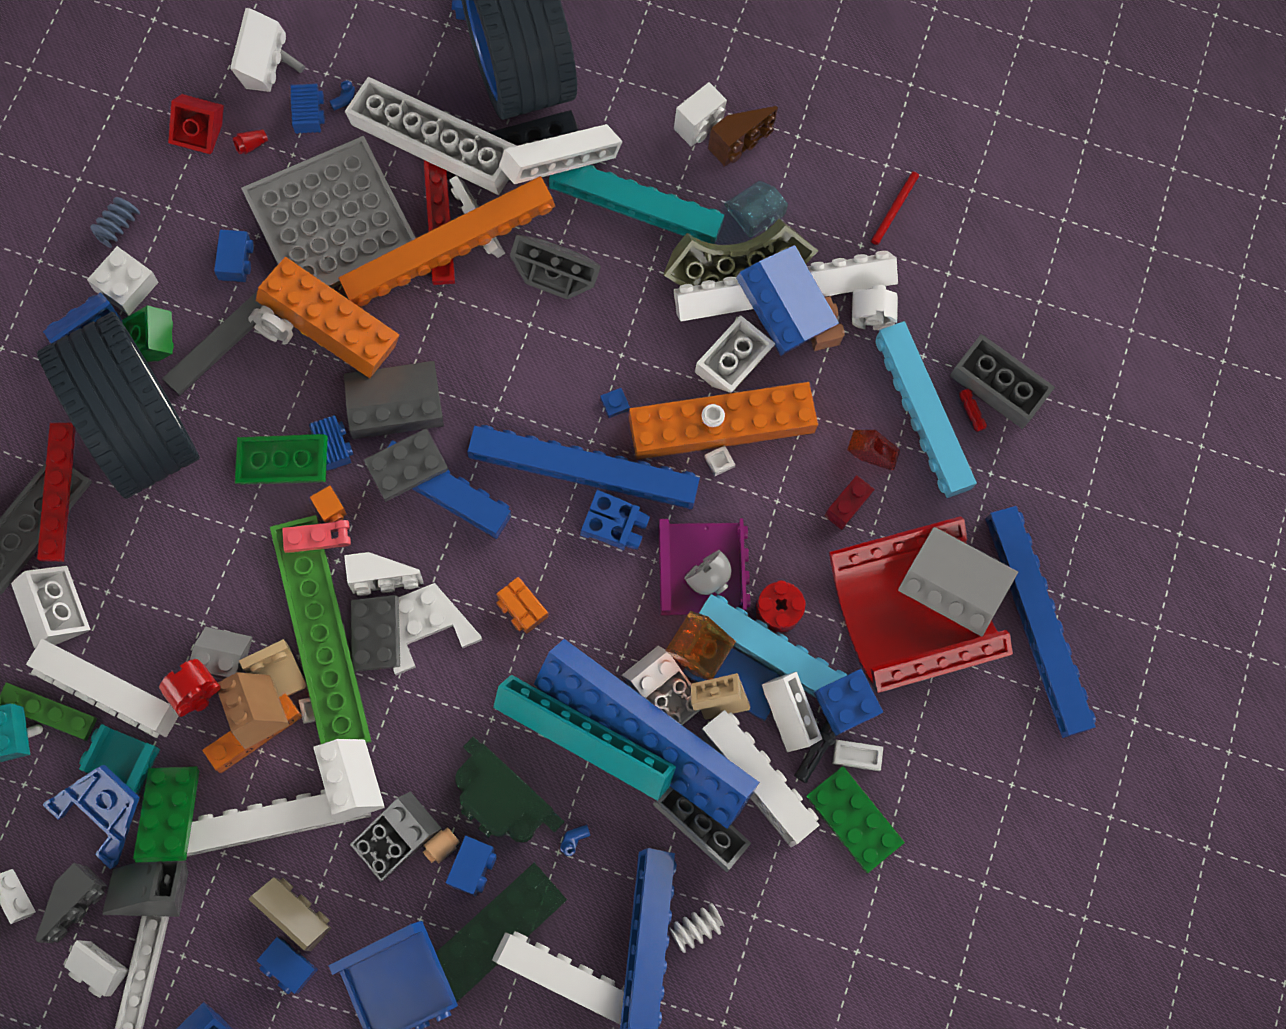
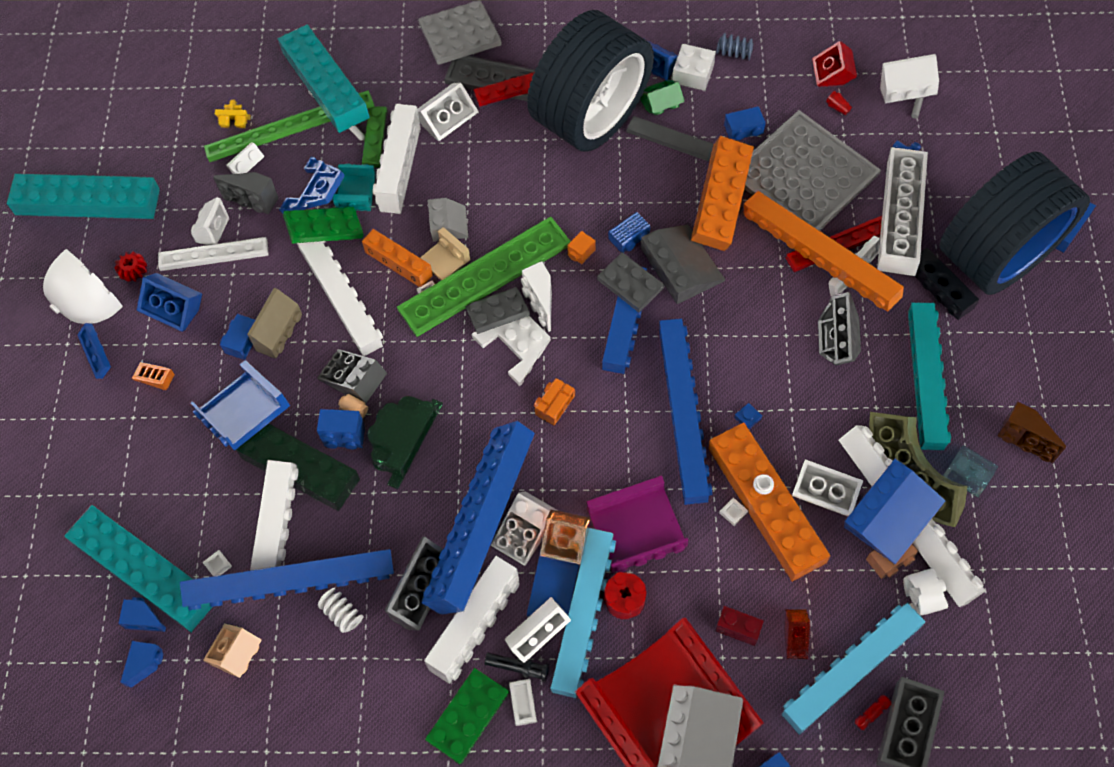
camera: 85 degrees right, 10 degrees down
(147, 889) = (269, 234): dark grey slope -> none
(189, 687) = (410, 200): red brick -> none
(252, 707) = (410, 243): medium nougat slope -> none
(271, 325) = (700, 168): white plate -> none
(281, 459) = (602, 204): green plate -> none
(306, 108) = (883, 127): blue brick -> none
(316, 536) = (553, 245): coral plate -> none
(348, 778) = (379, 323): white slope -> none
(559, 153) = (933, 298): white brick -> none
(571, 839) = (385, 497): blue arm -> none
(584, 737) = (461, 474): teal brick -> none
(613, 520) = (645, 451): blue hips -> none
(699, 114) = (1029, 391): white brick -> none
(710, 575) = (629, 529): light grey cylinder -> none
(718, 695) = (529, 564): tan bracket -> none
(848, 702) = (558, 670): blue brick -> none
(895, 208) = (1033, 587): red bar -> none

